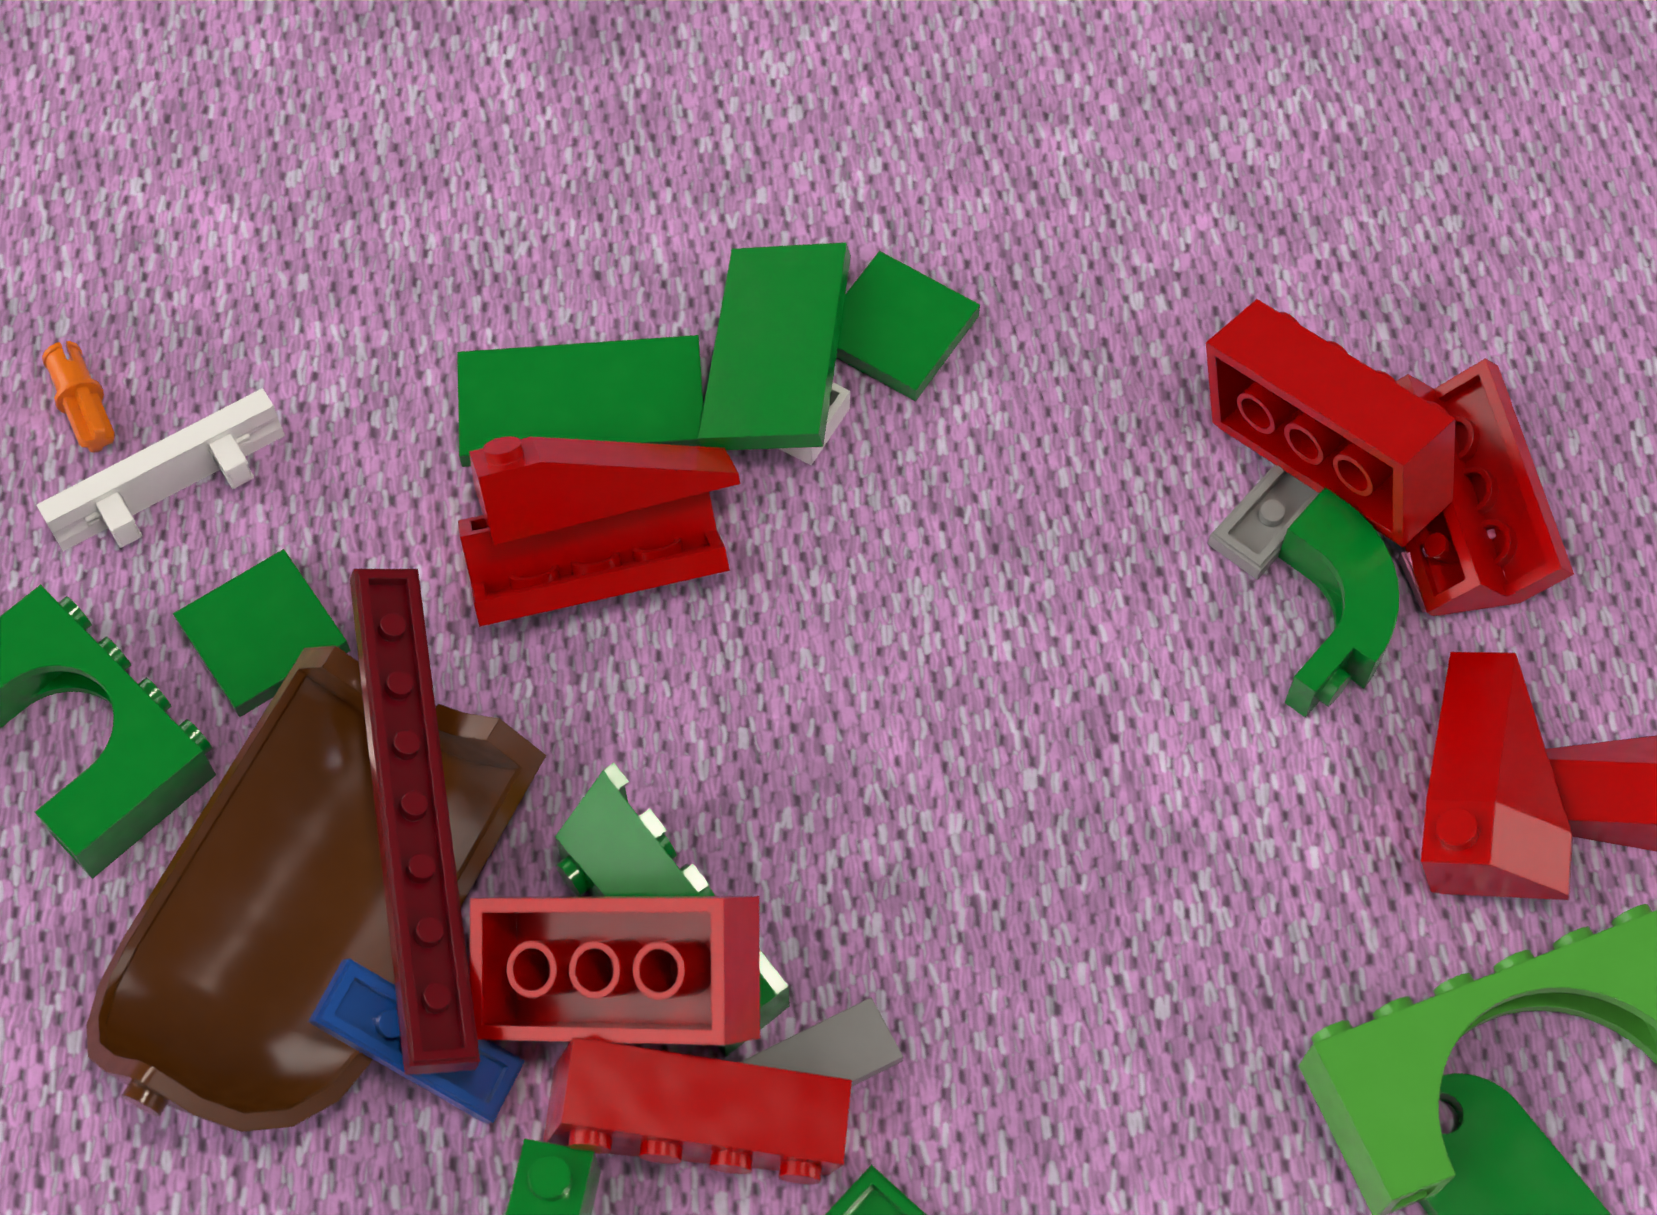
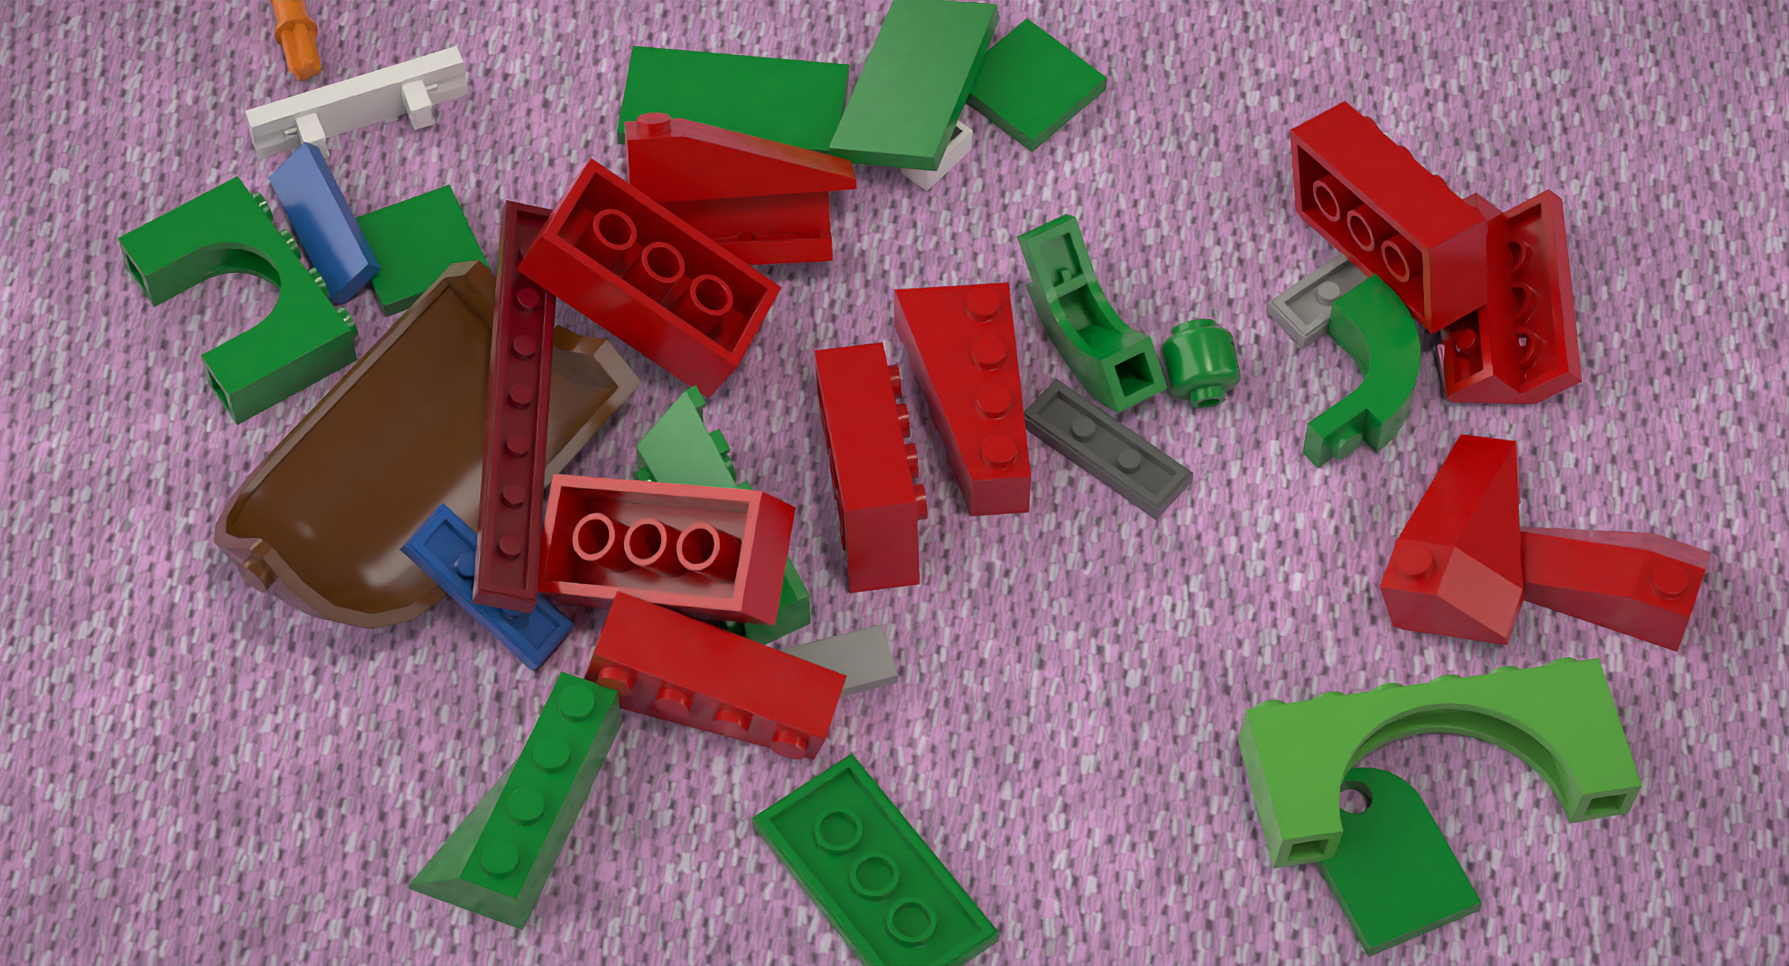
camera: 10 degrees right, 5 degrees down
(150, 620) = (324, 222): none -> blue tile
(532, 635) = (649, 278): none -> red brick
(822, 808) = (871, 466): none -> red wedge
(911, 684) = (970, 376): none -> red wedge
(1042, 621) = (1101, 350): none -> green arch
(1073, 737) = (1107, 449): none -> dark grey tile
(1156, 620) = (1200, 362): none -> green head

